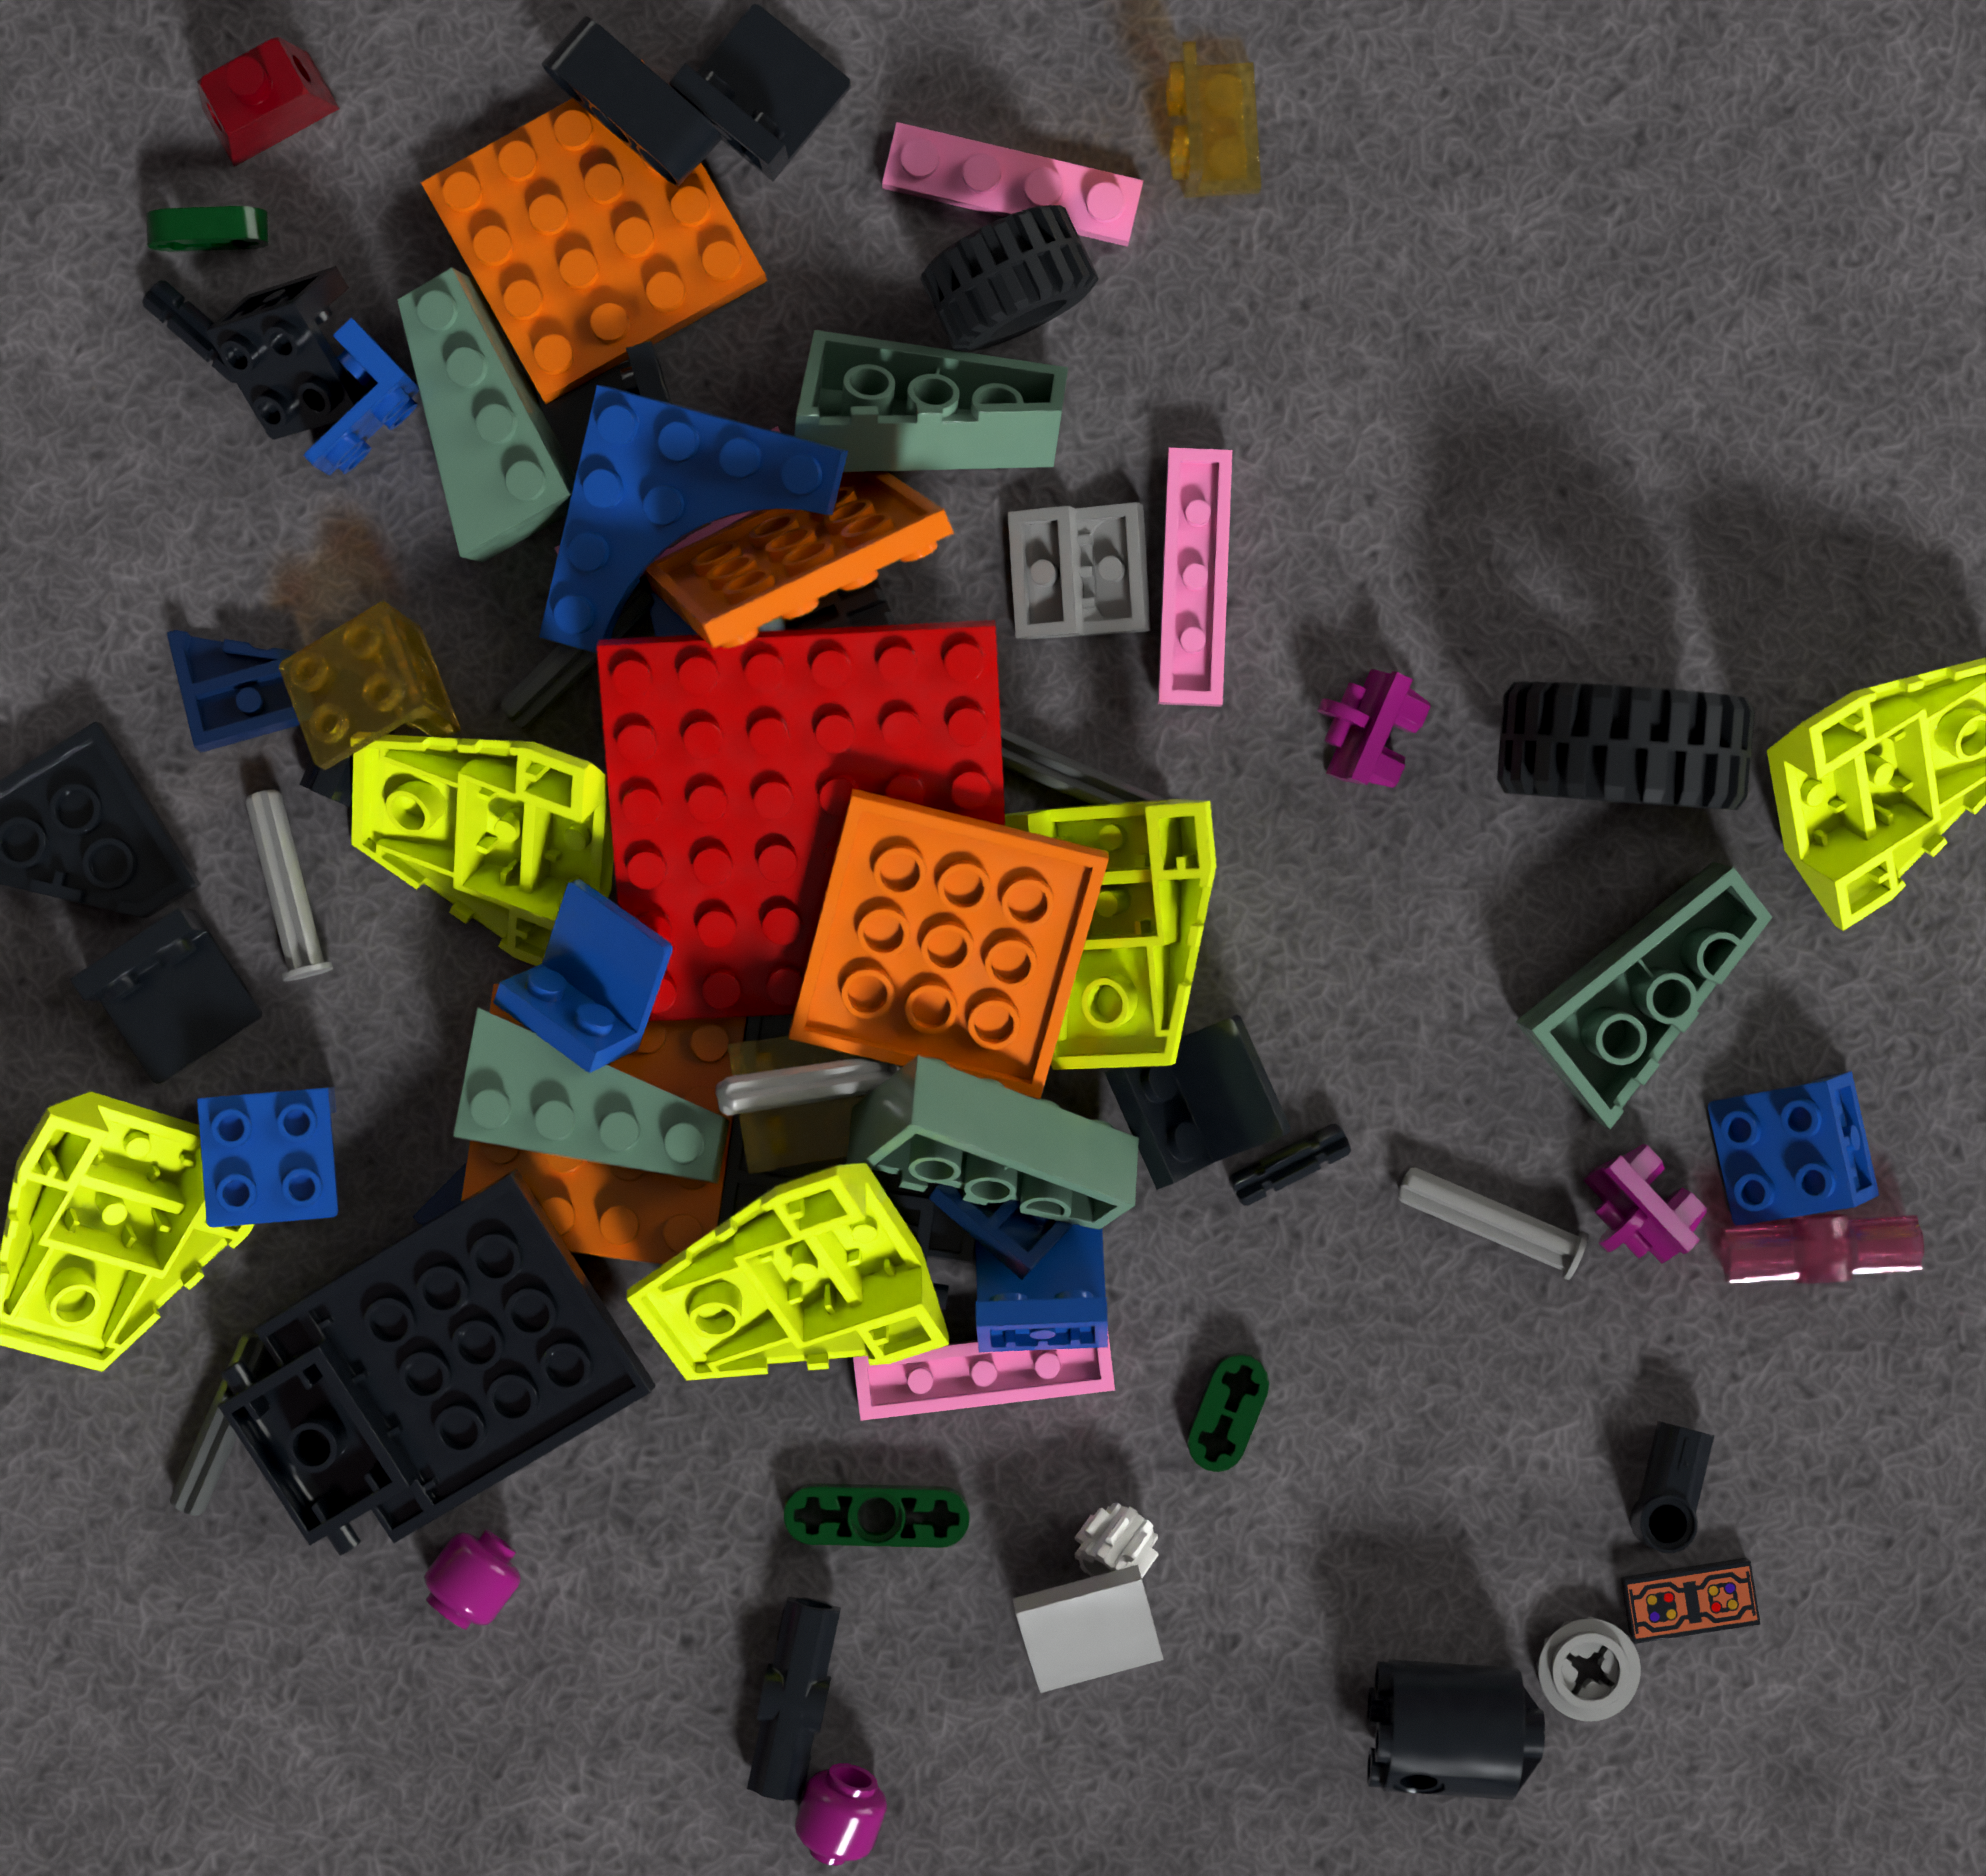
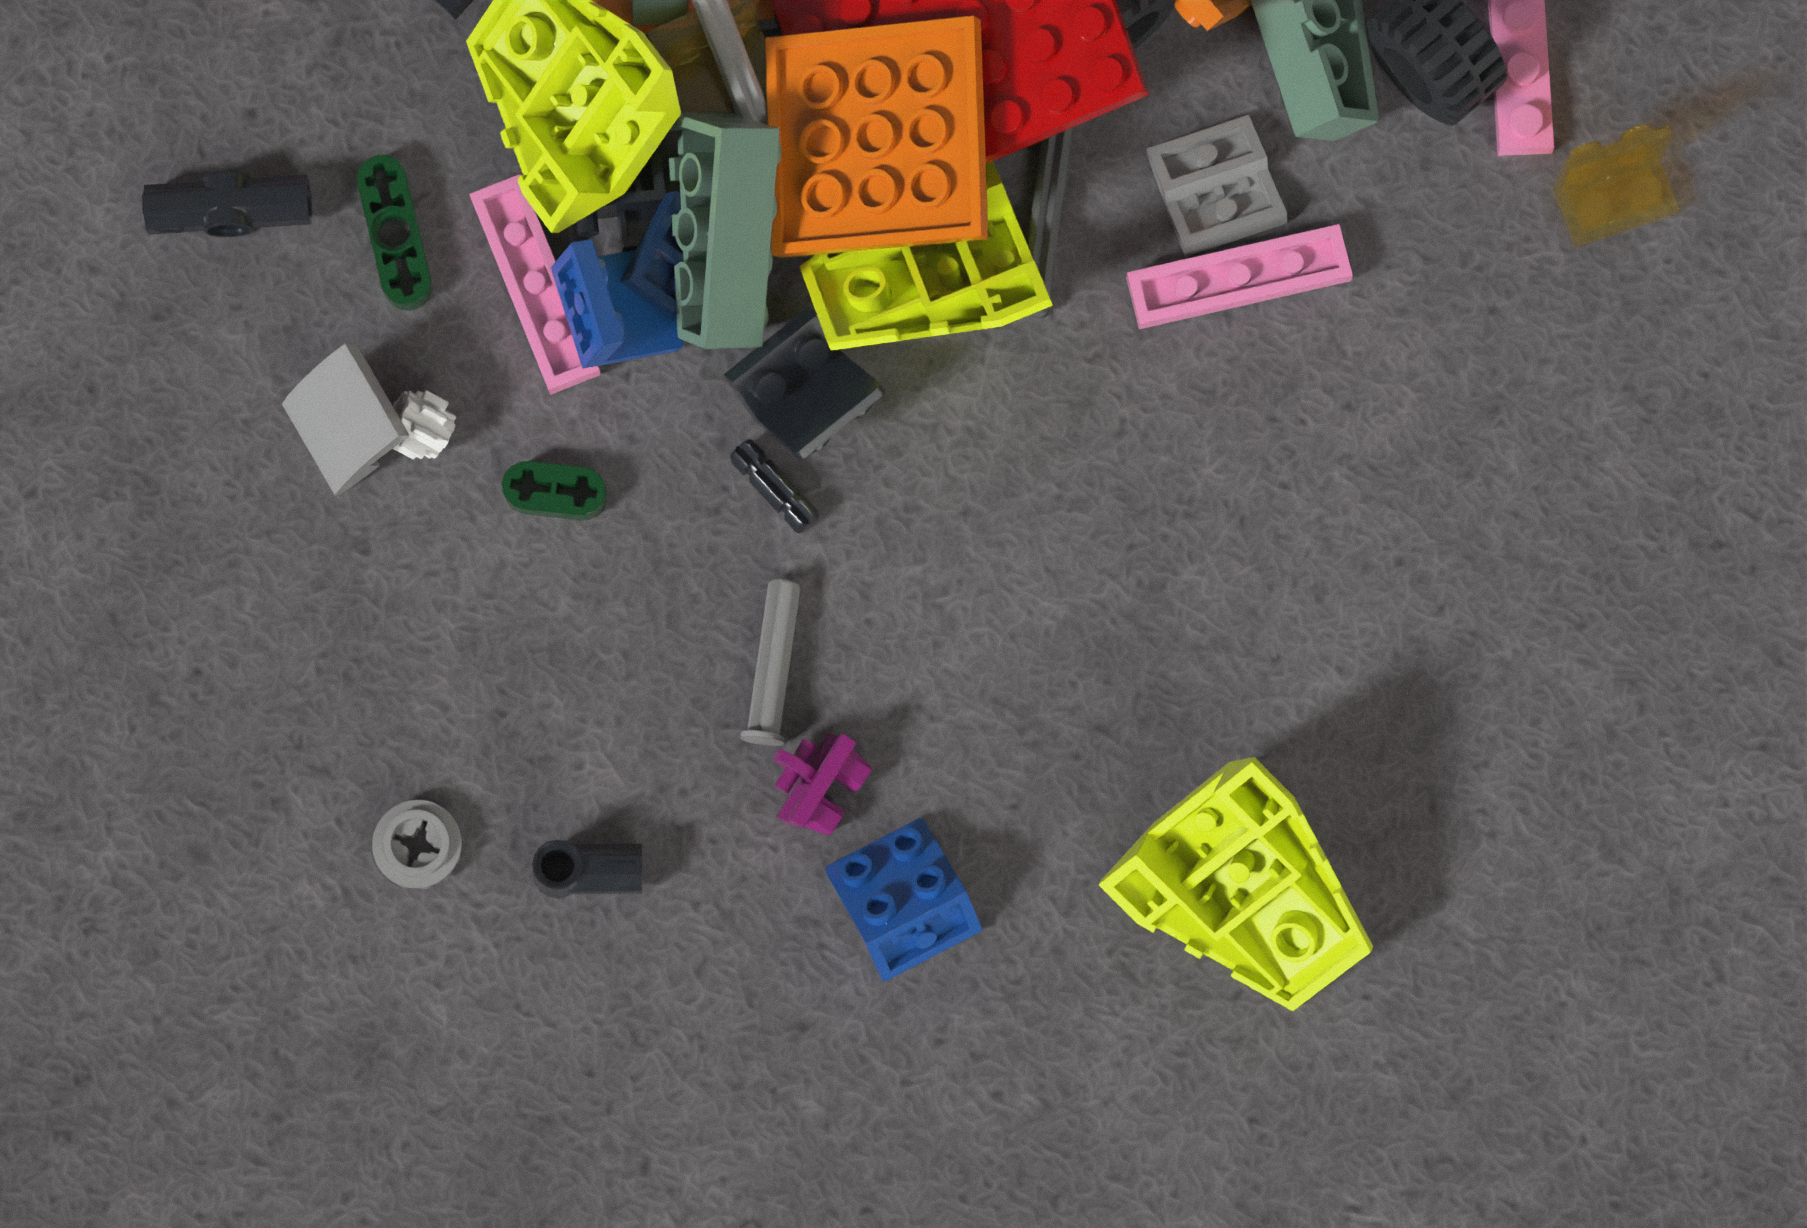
camera: 75 degrees right, 10 degrees down
(841, 1814) = (142, 265): magenta head -> none
(1363, 726) = (1180, 456): magenta hips -> none
(1452, 1730) = (338, 731): black cylinder -> none
(1625, 744) = (1197, 636): black tyre -> none
(1637, 995) = (987, 720): sand green wedge -> none
(1690, 1600) = (497, 915): tile -> none
(1821, 1248) = (824, 940): clear pink piece -> none

